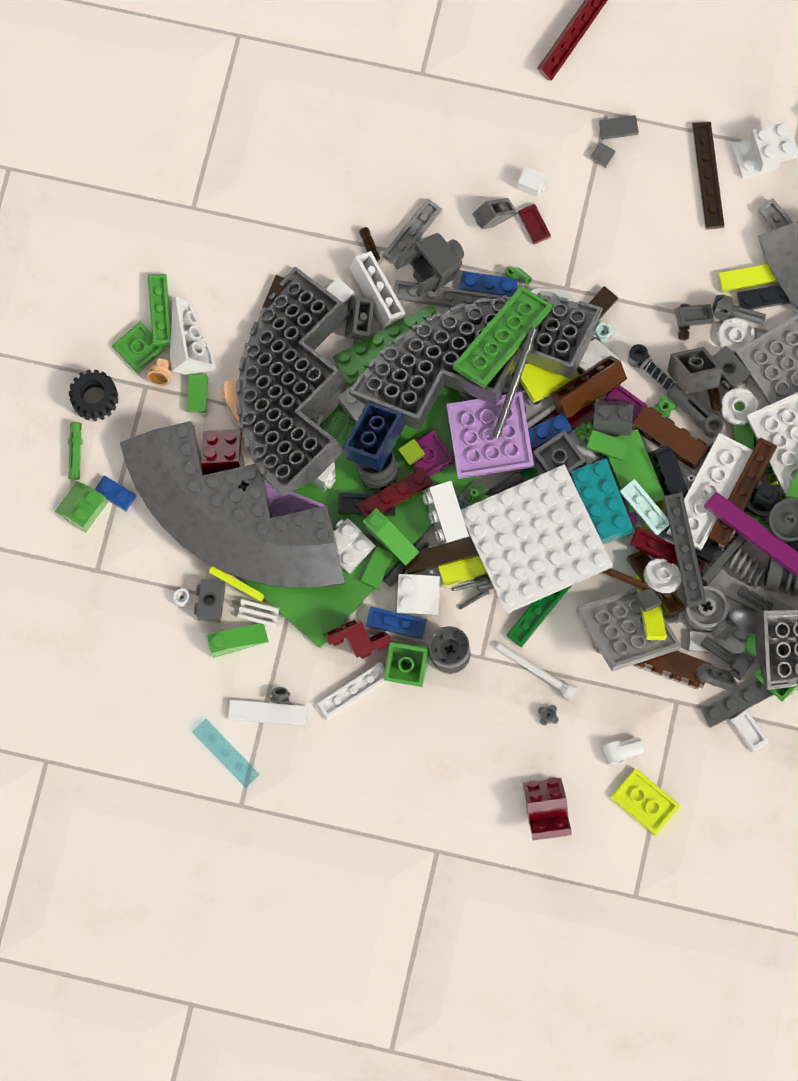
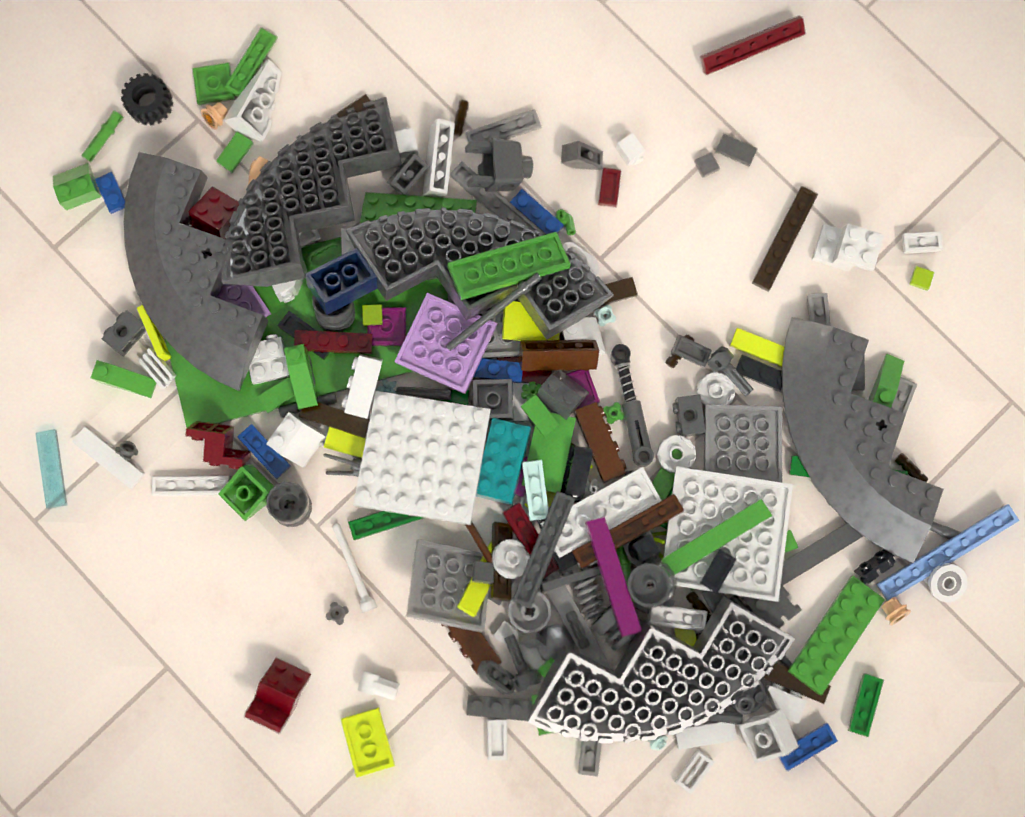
camera: 25 degrees right, 5 degrees up
(181, 592) = (100, 312): white plate -> none
(477, 494) = (403, 386): bright green plant -> none
(694, 370) = (658, 399): flat silver brick -> none
(715, 399) = (661, 430): dark brown axle -> none

